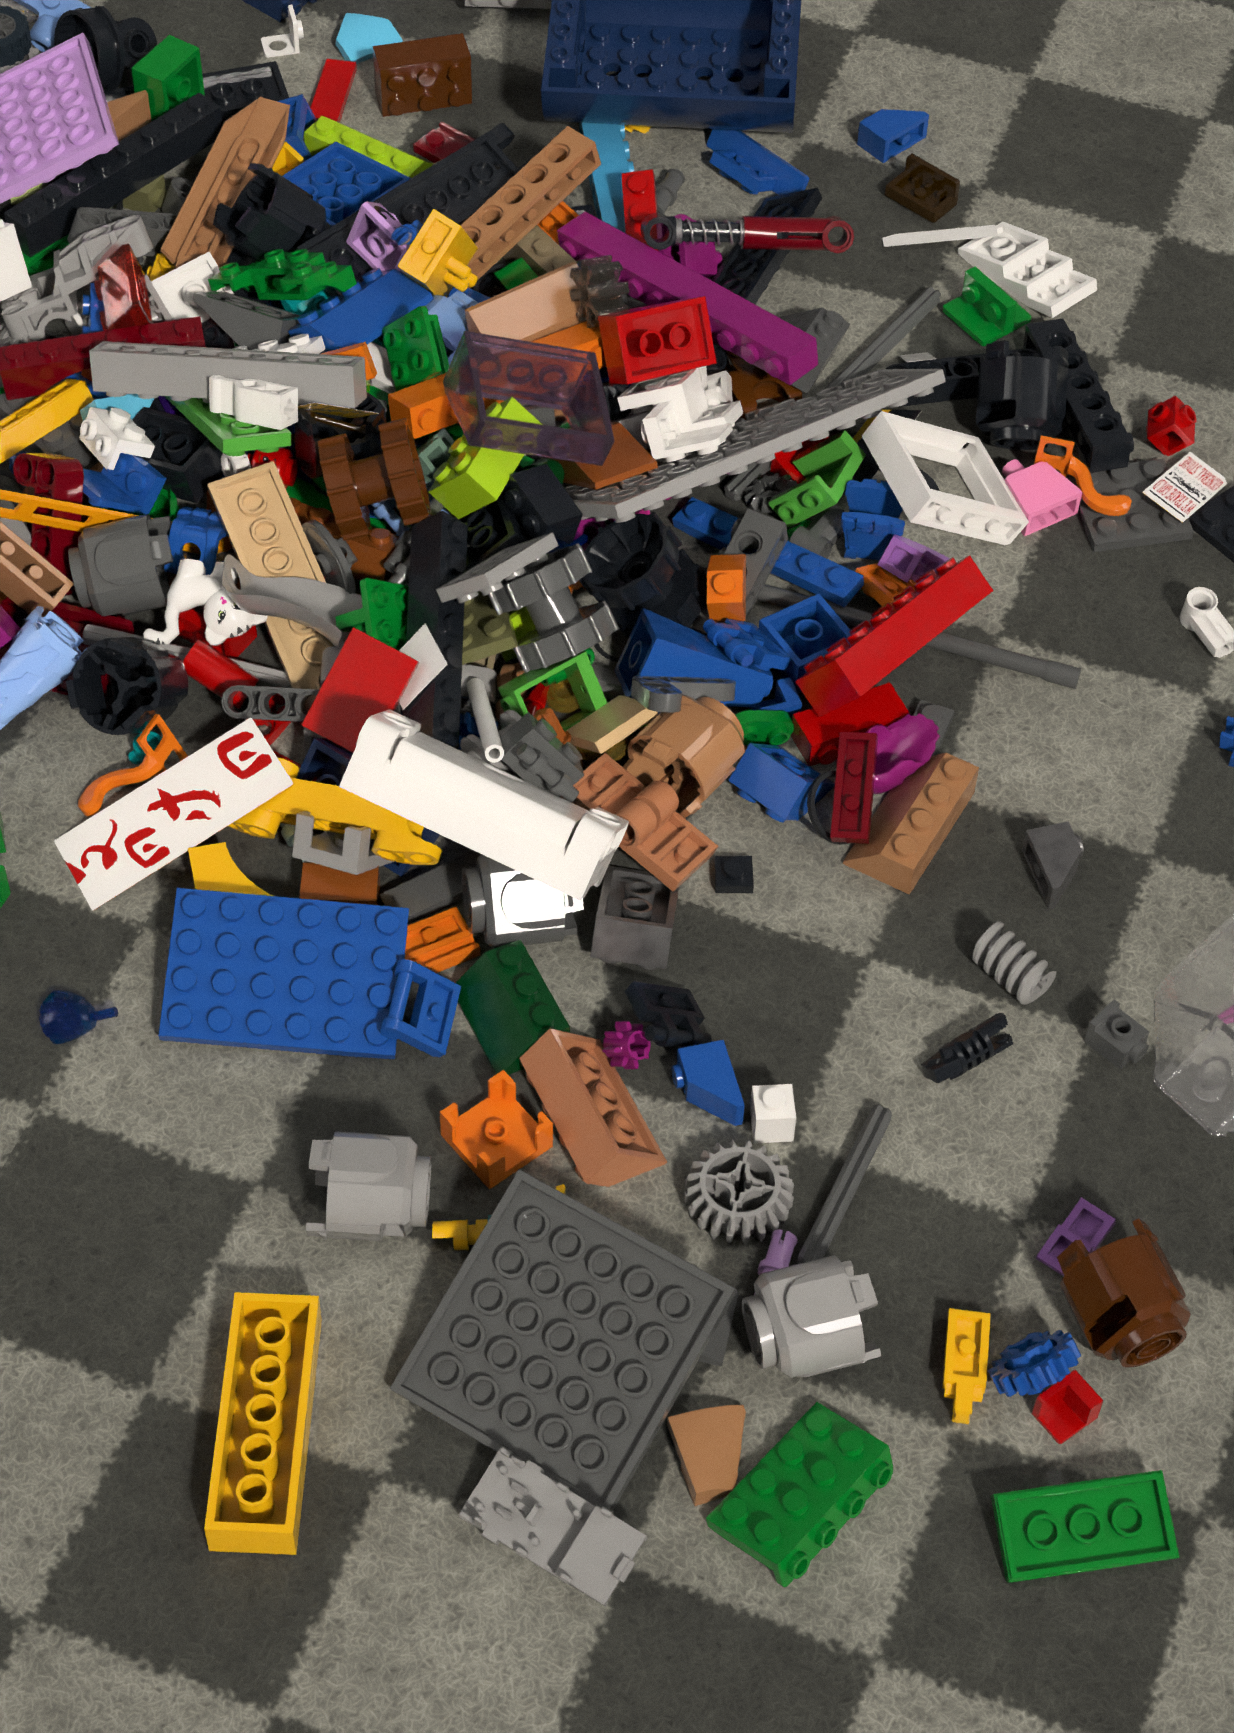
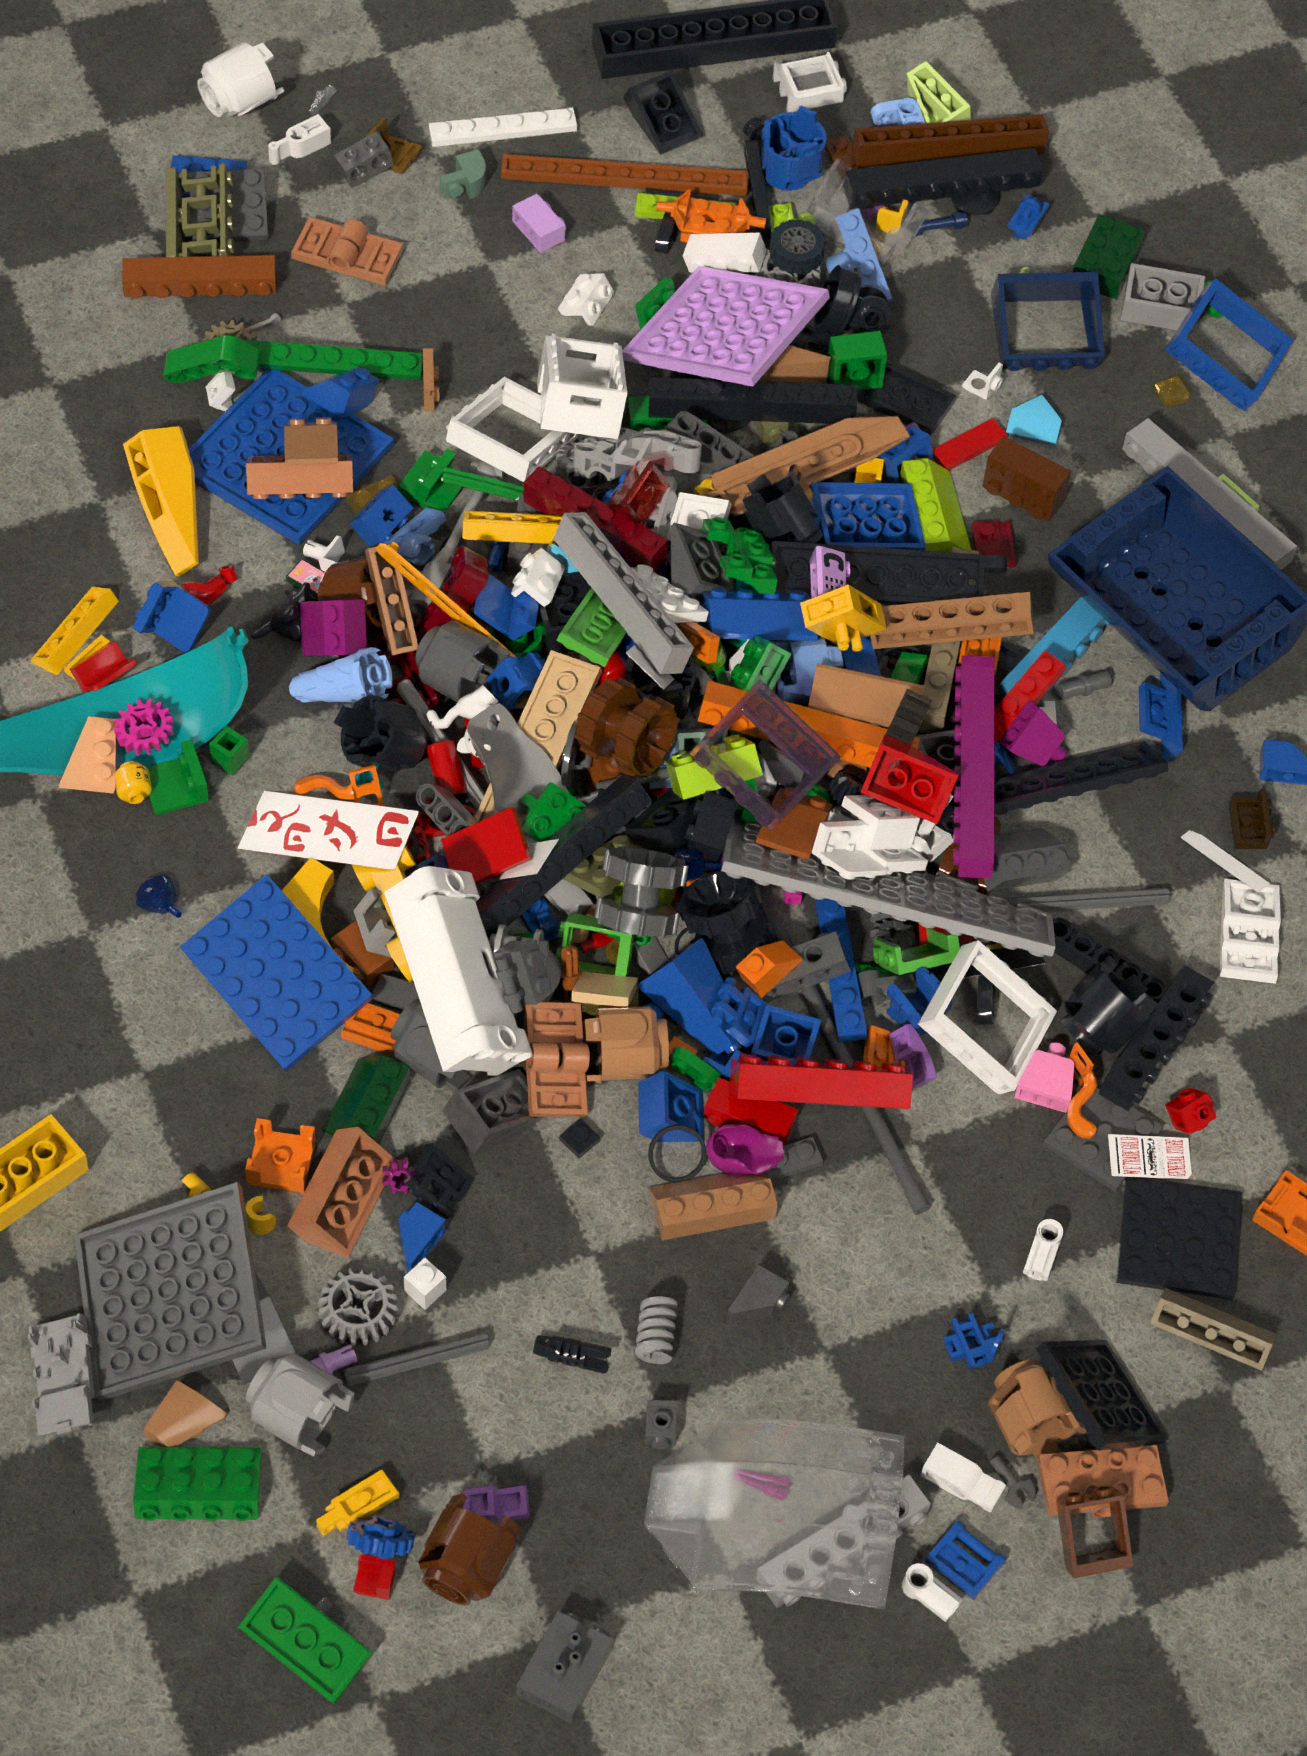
camera: 45 degrees right, 5 degrees up
(254, 401) = (614, 624): white piece -> none
(372, 1186) = (176, 1122): light grey piece -> none
(406, 233) = (822, 586): blue piece -> none
(432, 1009) = (324, 1064): blue plate -> none
(485, 720) = (526, 924): white piece -> none
(503, 565) = (624, 842): light grey plate -> none
(666, 692) = (646, 990): dark grey beam -> none
(752, 232) = (1070, 758): piece -> none
(854, 787) = (691, 1149): dark red plate -> none
(917, 357) = (1093, 927): white sticker -> none
(985, 309) = (1184, 935): green bracket -> none

